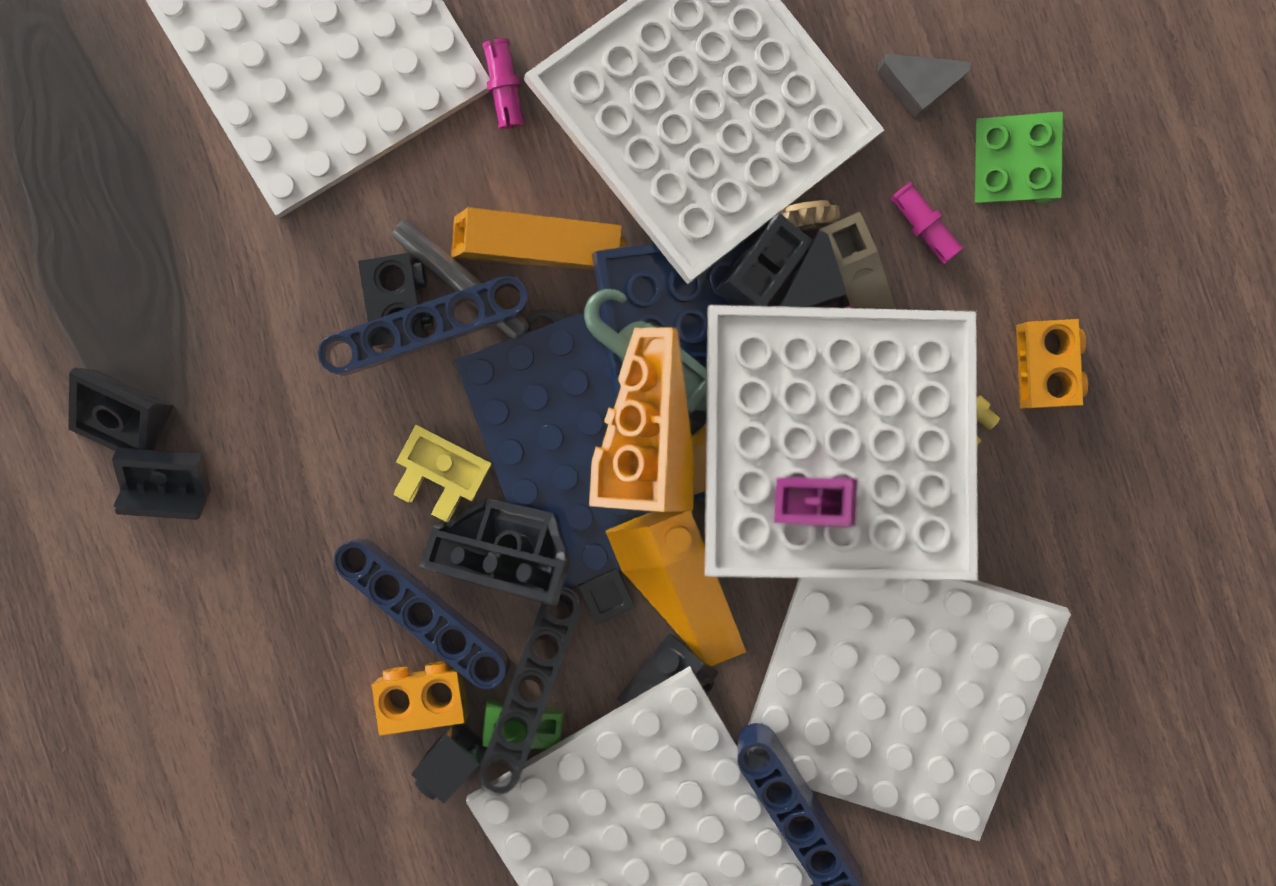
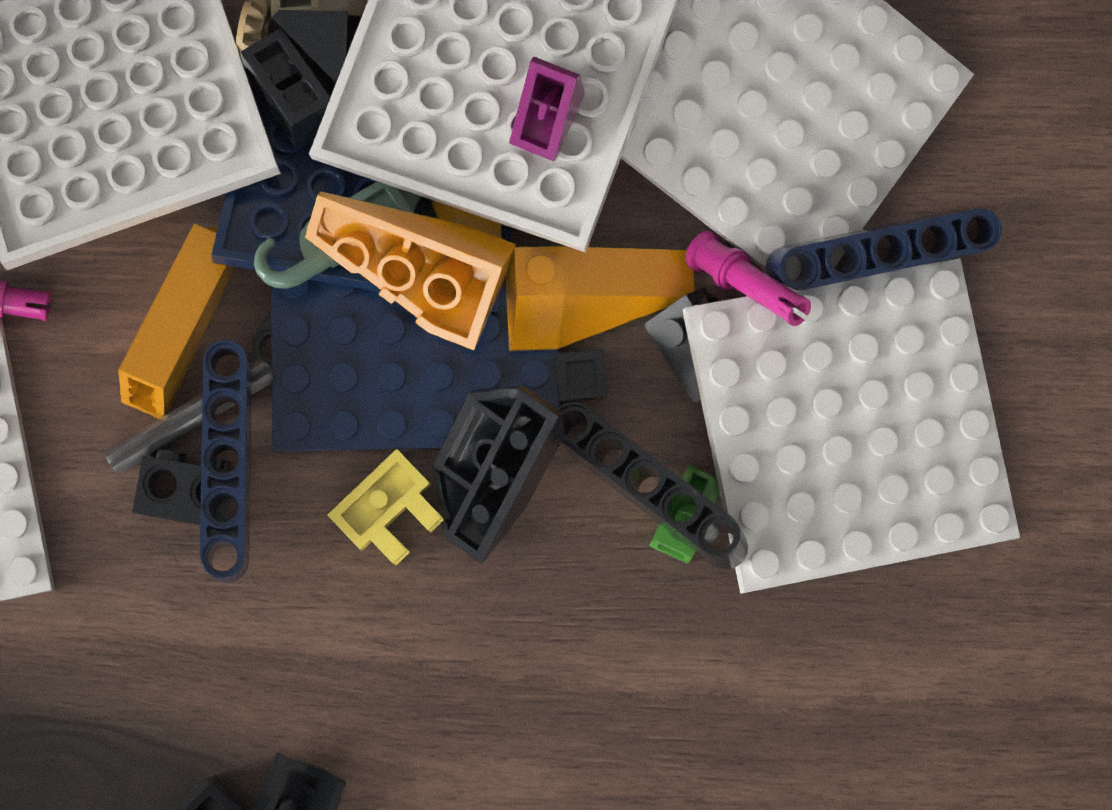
camera: 70 degrees left, 5 degrees down
(401, 610) = (506, 579): dark blue beam -> none
(423, 708) = (634, 613): light orange brick -> none
(449, 762) = (697, 599): black brick -> none
(738, 698) = (734, 270): none -> dark pink pin

